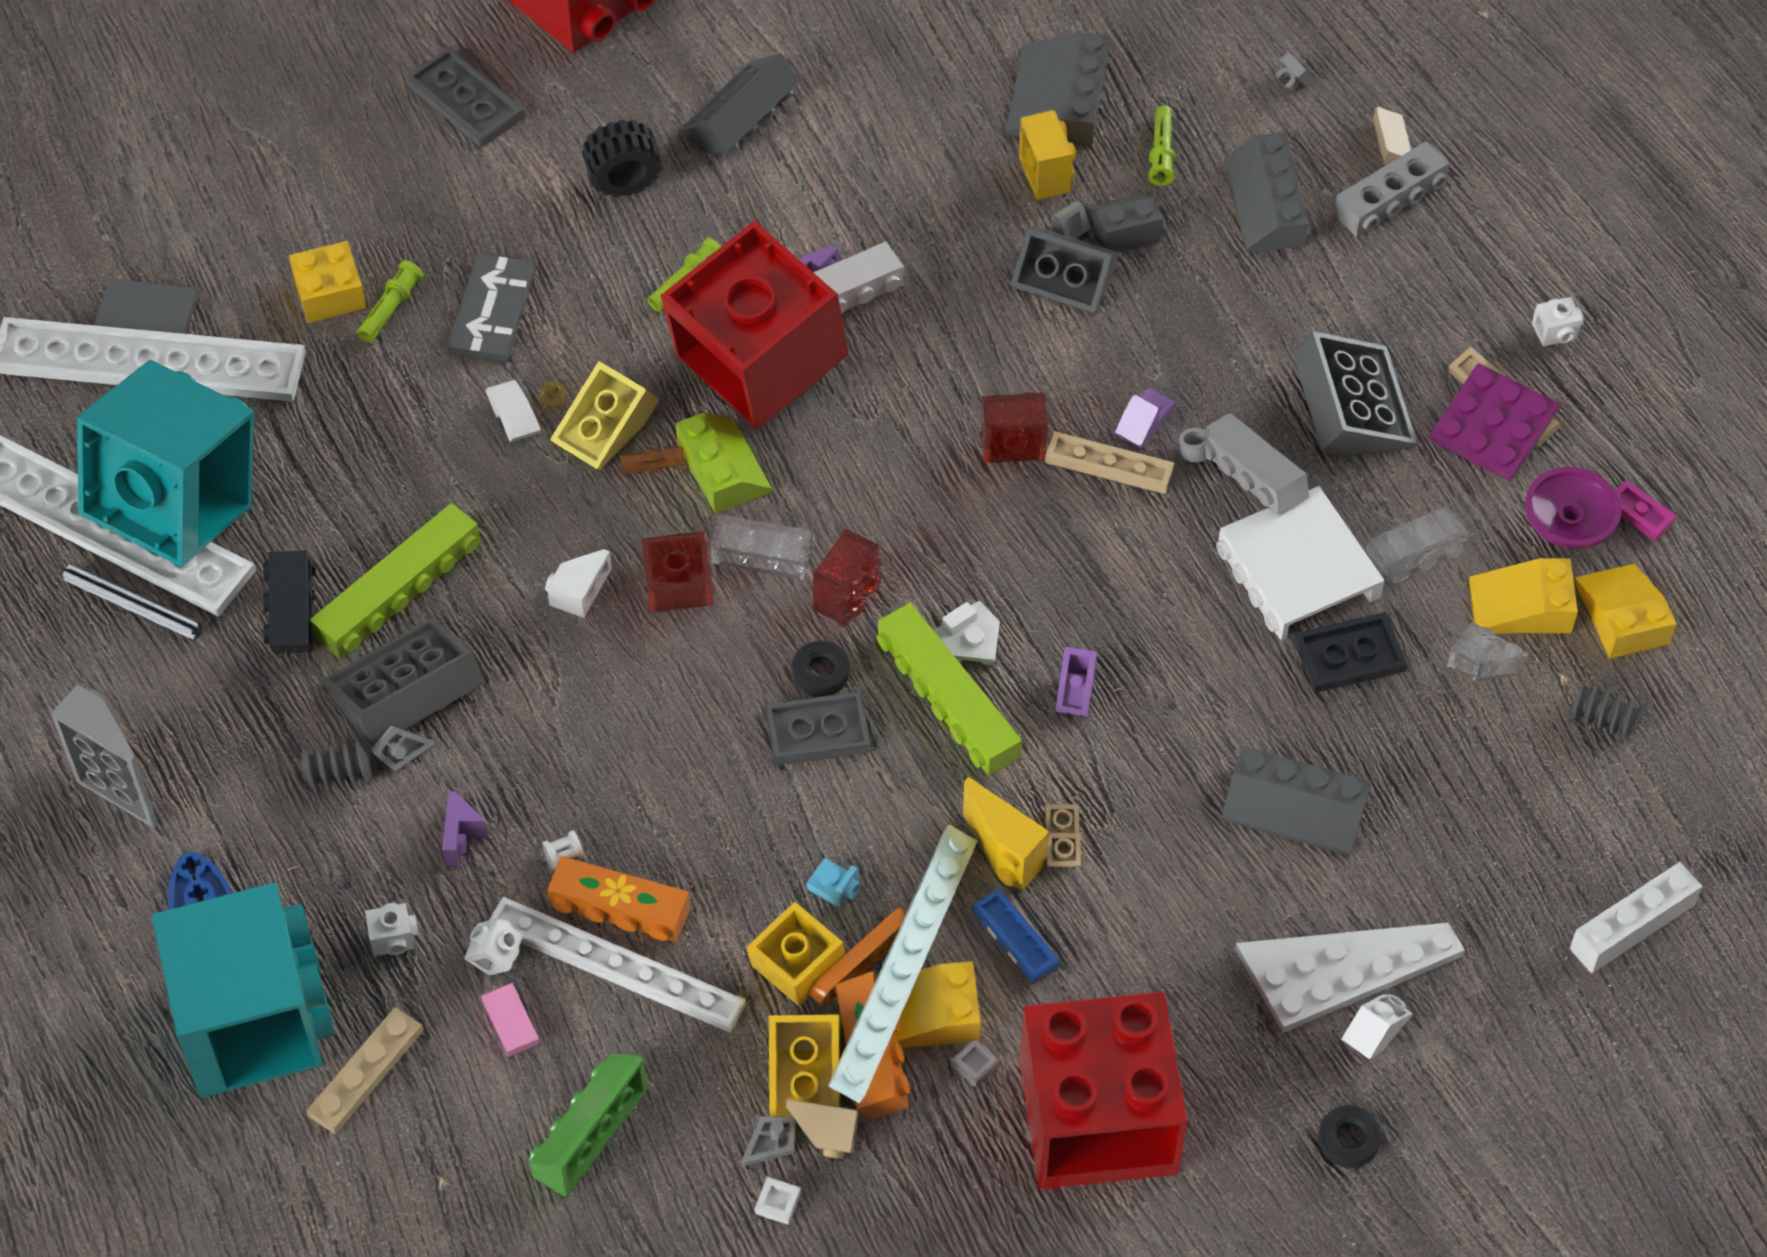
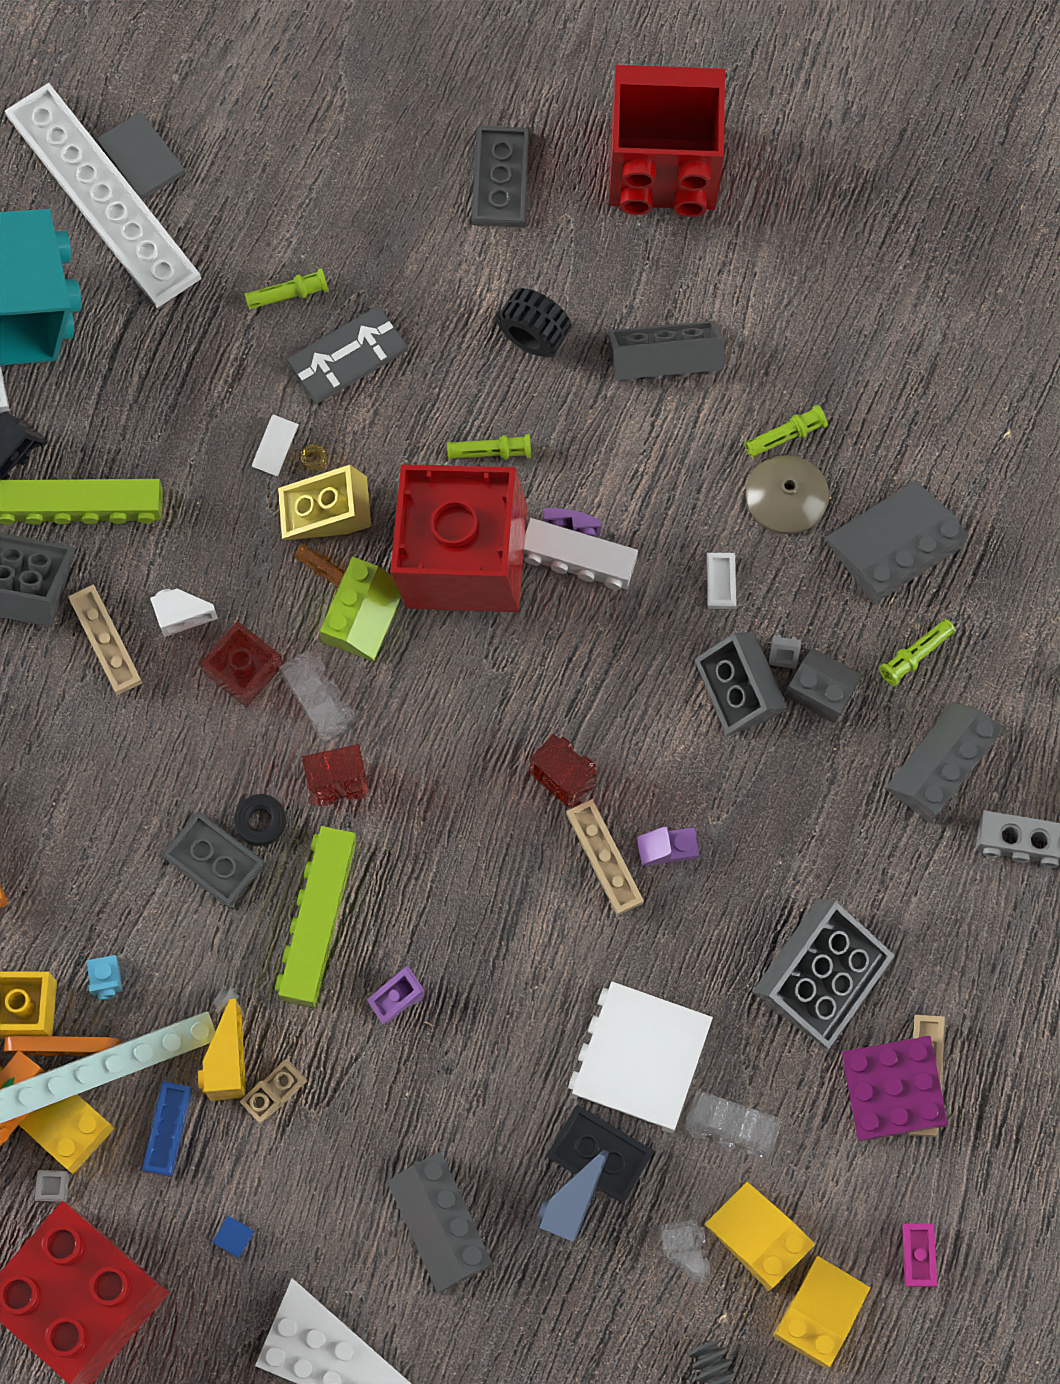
camera: 45 degrees right, 15 degrees up
(327, 281) = (262, 239): yellow brick -> none
(541, 655) = (105, 639): none -> tan plate
(898, 76) = (797, 427): none -> lime pin
(943, 128) = (785, 509): none -> dark tan dish
(950, 808) = (223, 999): none -> light grey plate
(966, 220) = (721, 581): none -> white tile
(970, 633) = (376, 890): white plate -> none
(1046, 154) = (821, 586): yellow brick -> none
(1157, 961) = (233, 1237): none -> blue tile
(1248, 460) = (689, 951): light grey hinge -> none
(1373, 698) = (569, 1205): none -> sand blue slope
(1557, 321) = (1021, 1056): white brick -> none
(1576, 496) = (885, 1196): magenta dish -> none

